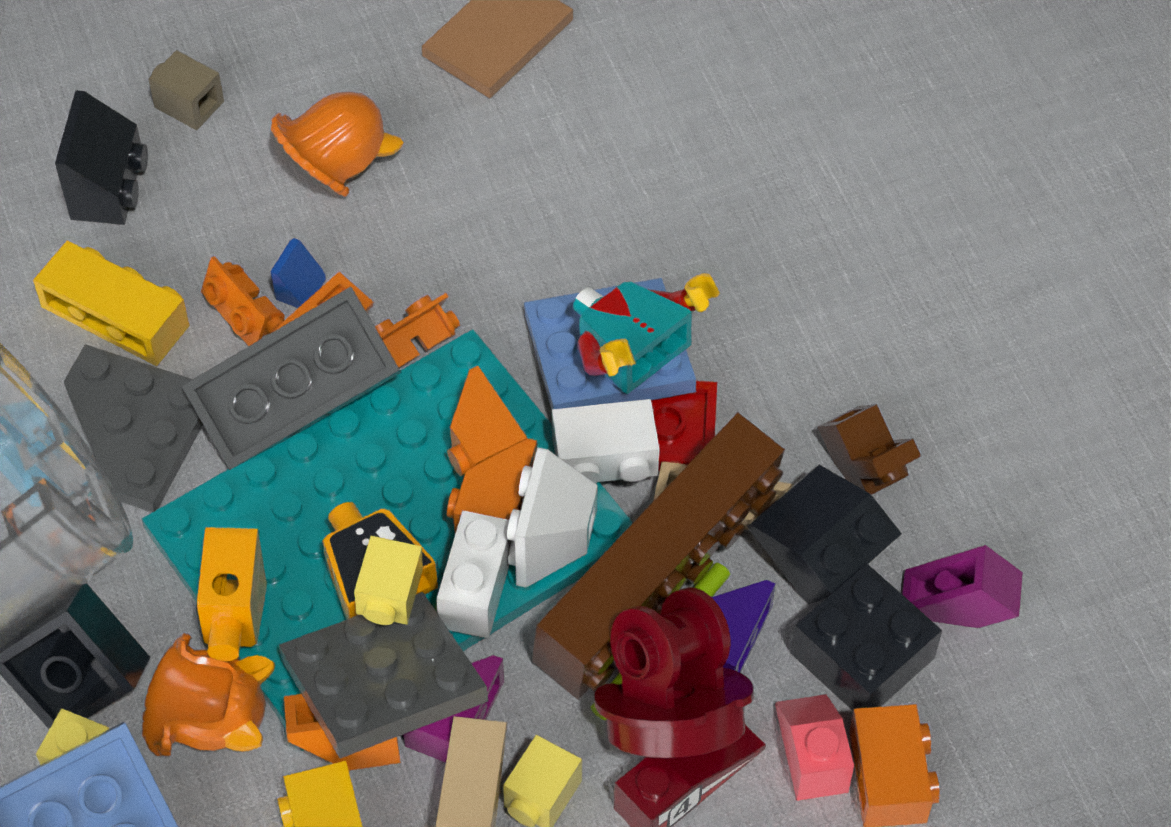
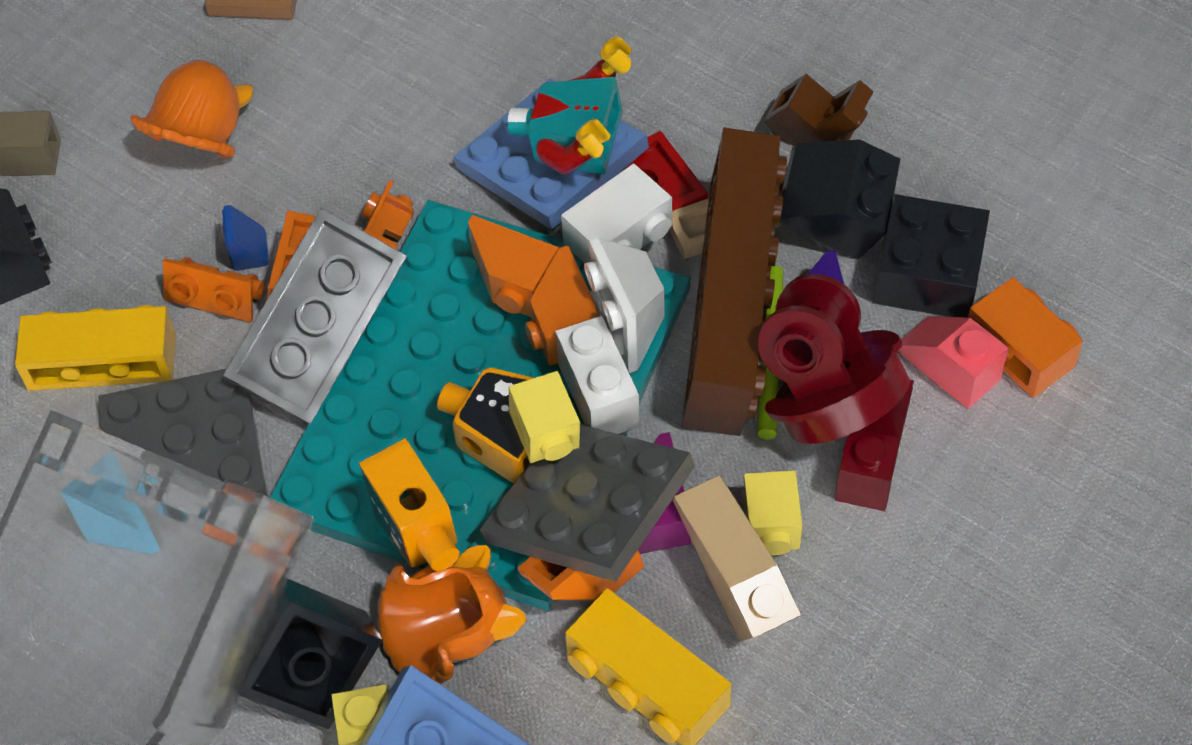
camera: 30 degrees left, 0 degrees up
(966, 588) = (974, 172): magenta slope -> none

